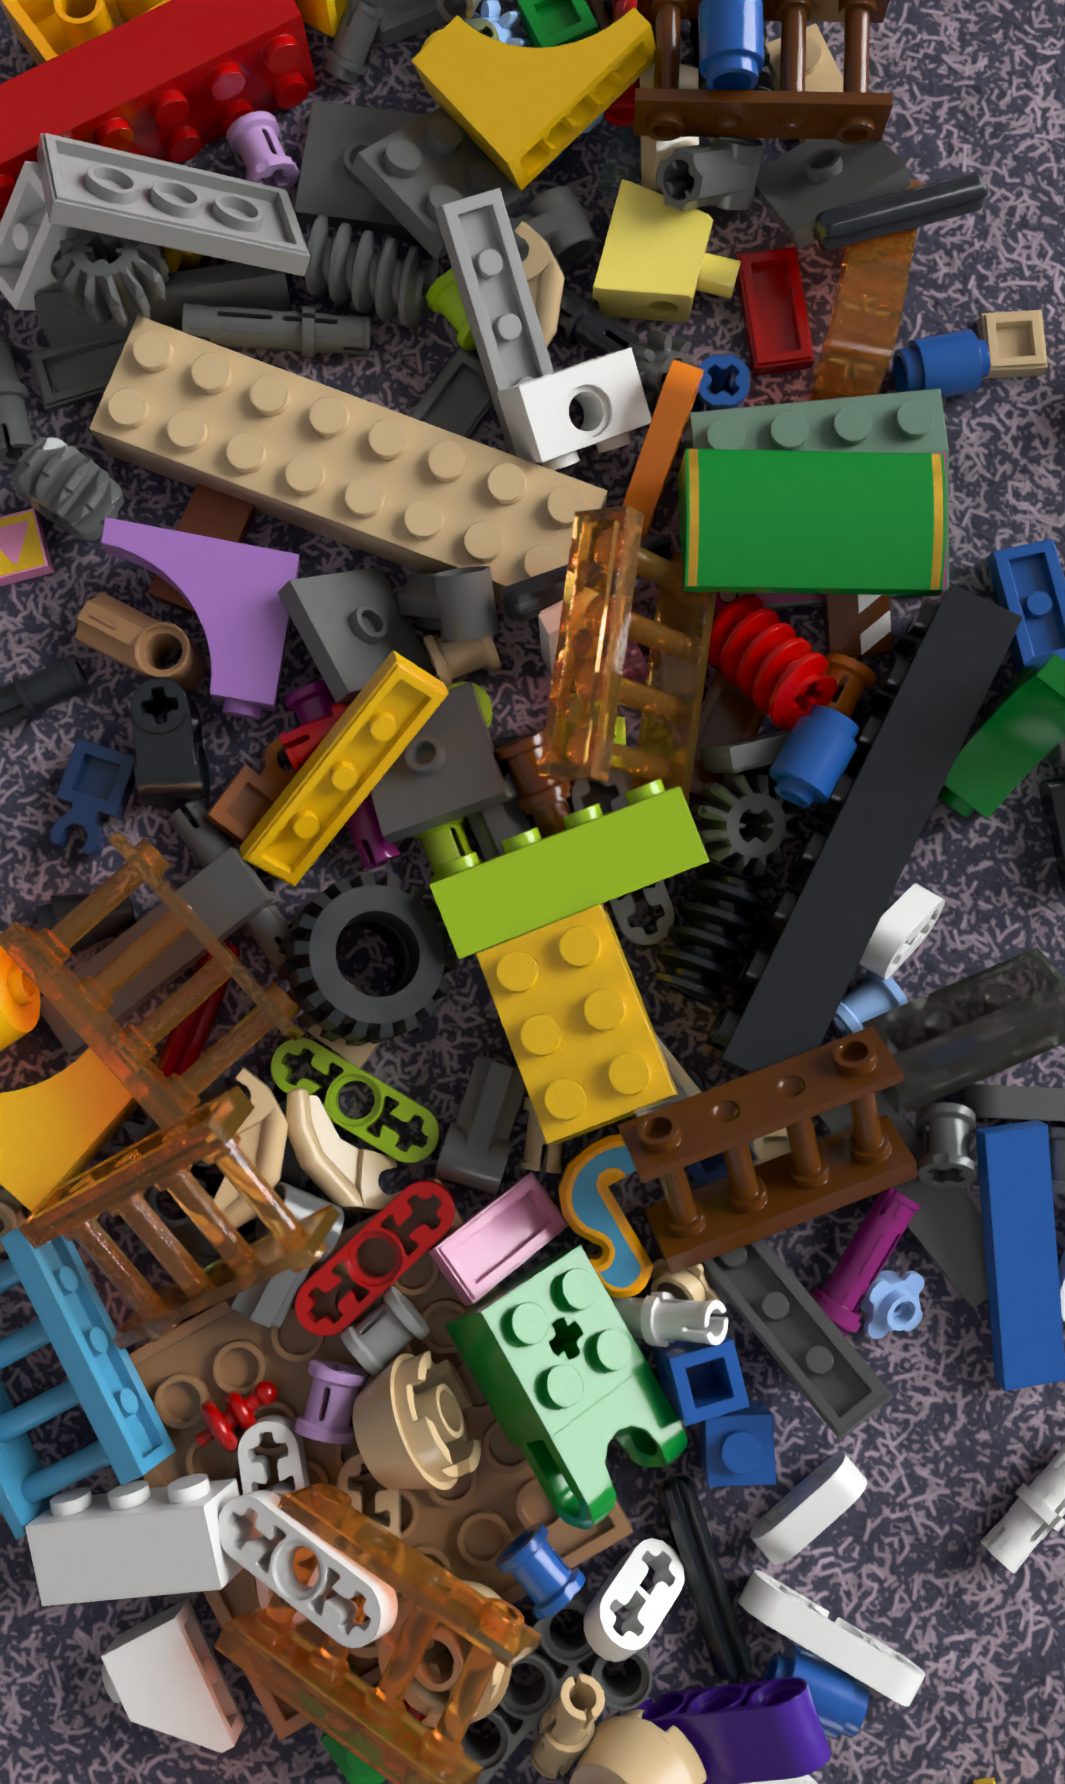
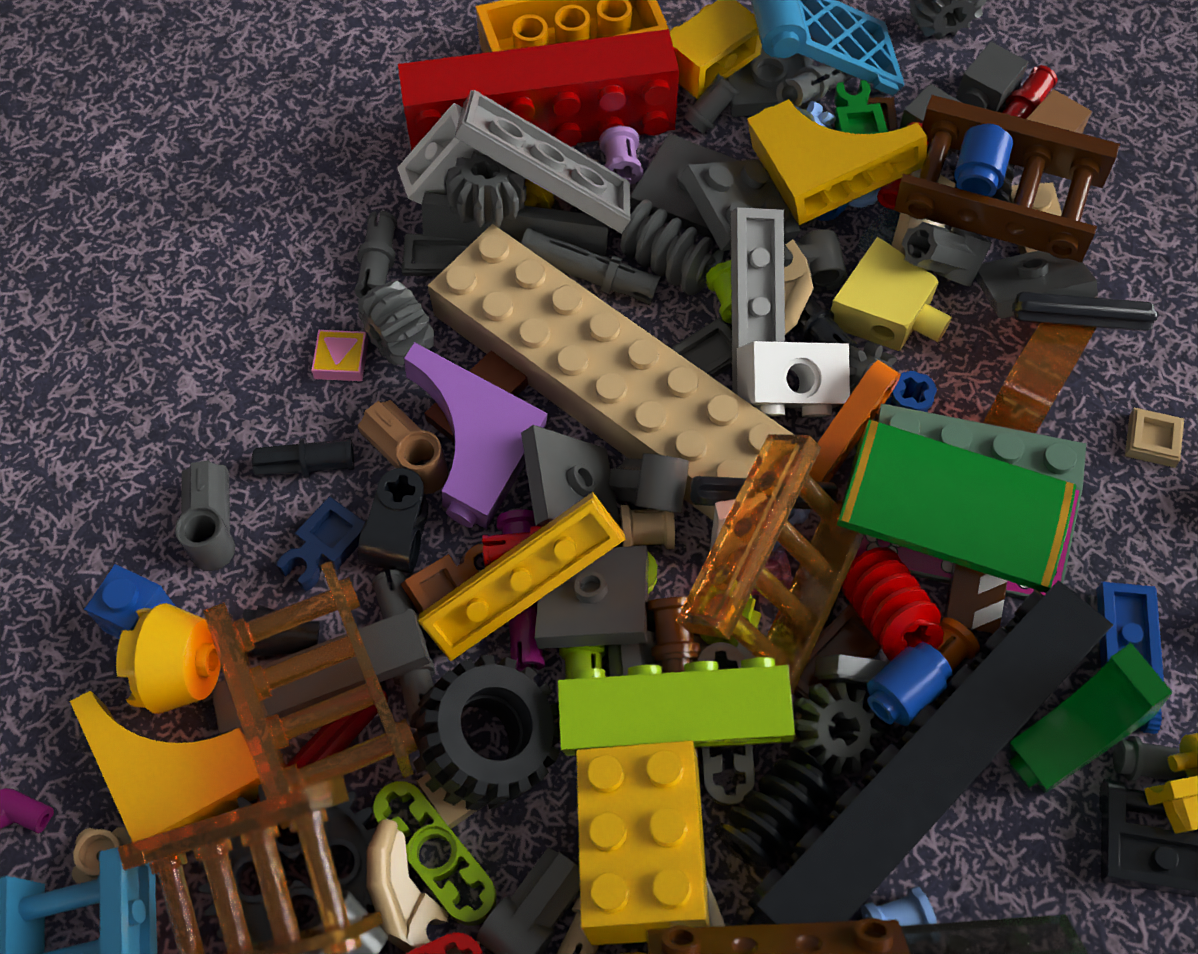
camera: 20 degrees right, 20 degrees down
(262, 1141) = (348, 843): tan piece -> none
(774, 311) = (969, 362): red tile -> none
(901, 930) = (945, 861): white beam -> none
(943, 362) = (1102, 430): blue brick -> none

